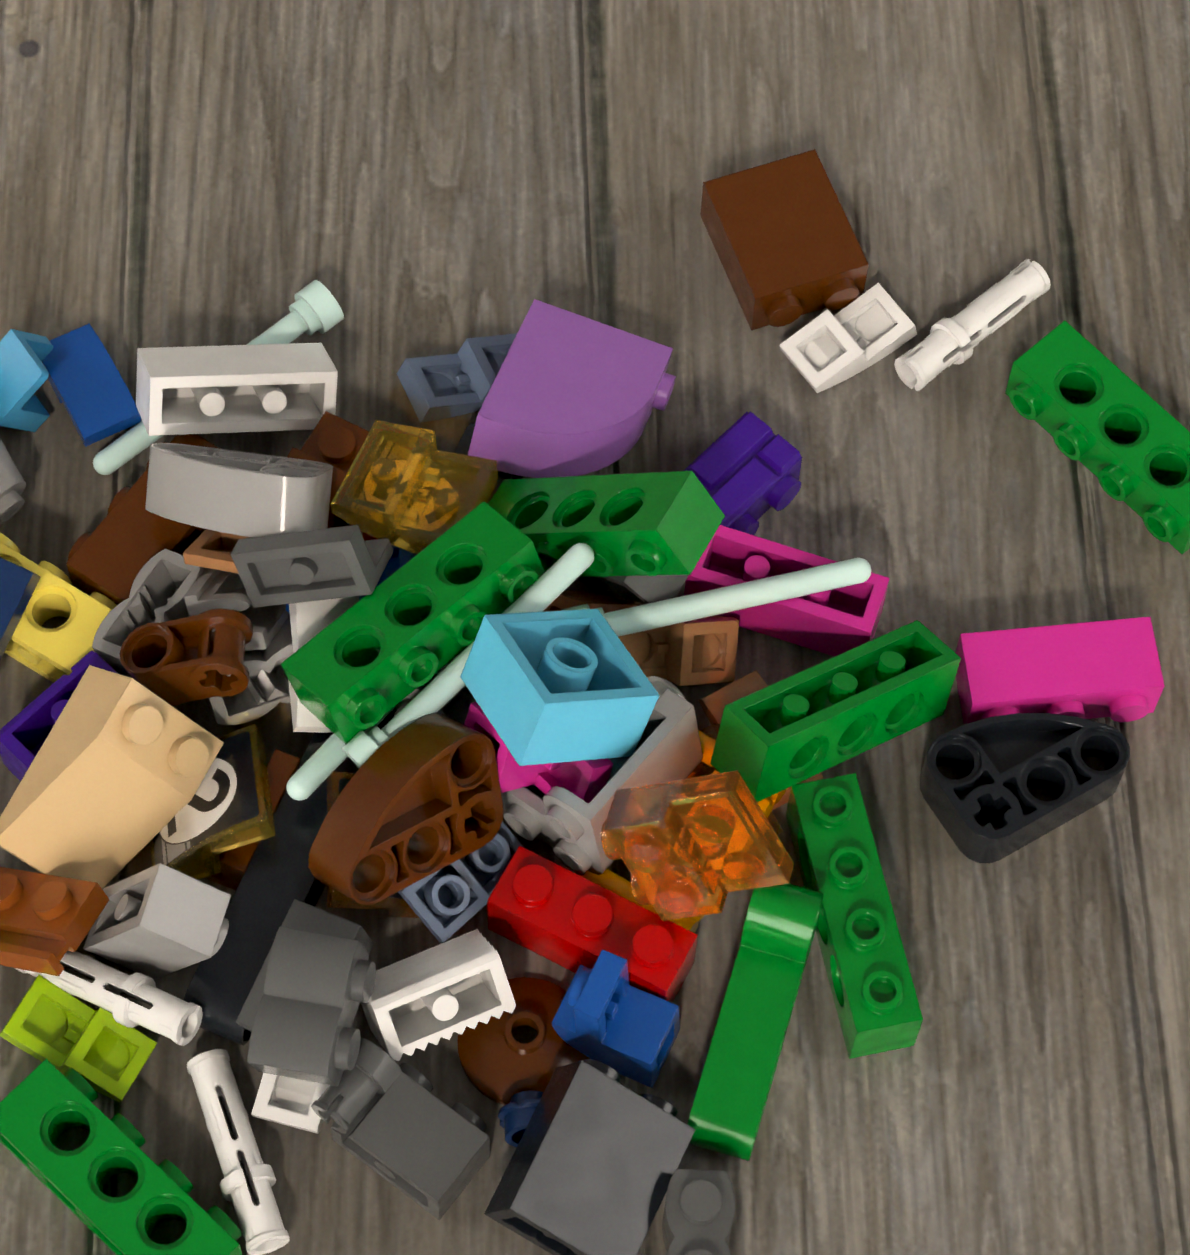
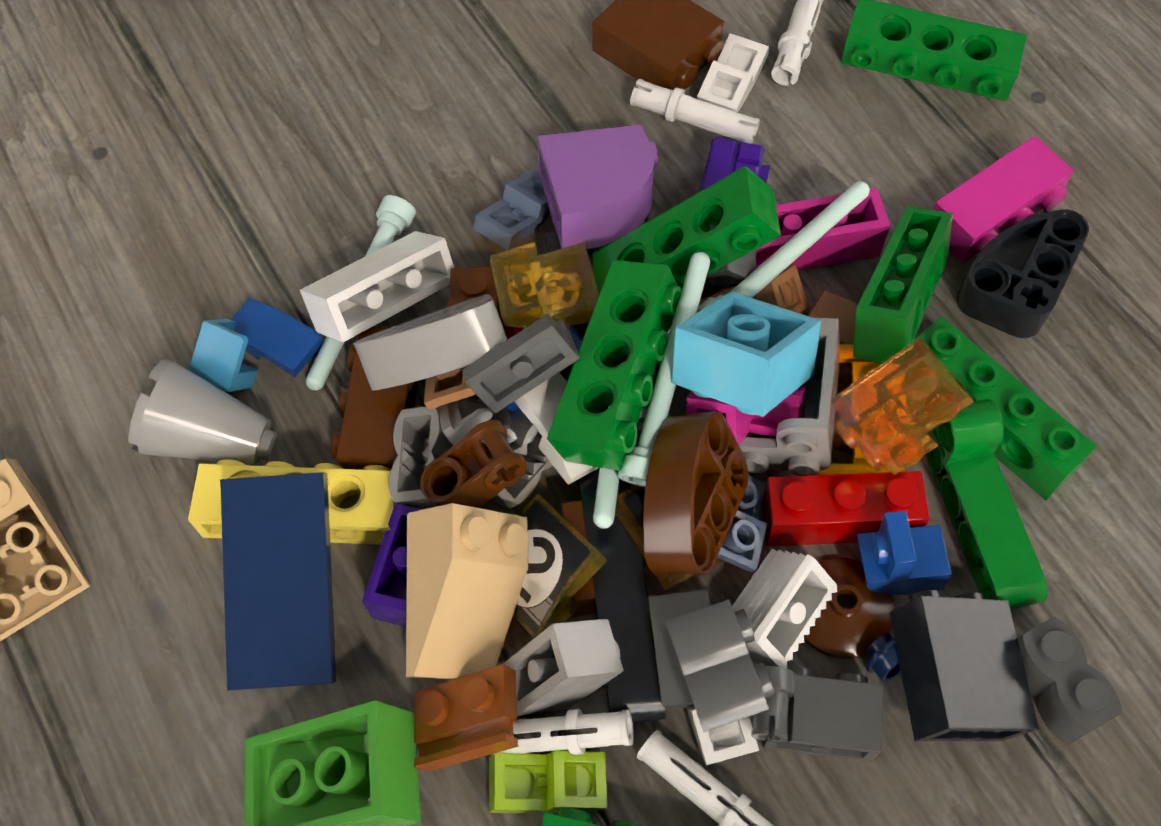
camera: 25 degrees left, 0 degrees up
(746, 344) = (702, 114): none -> white pin

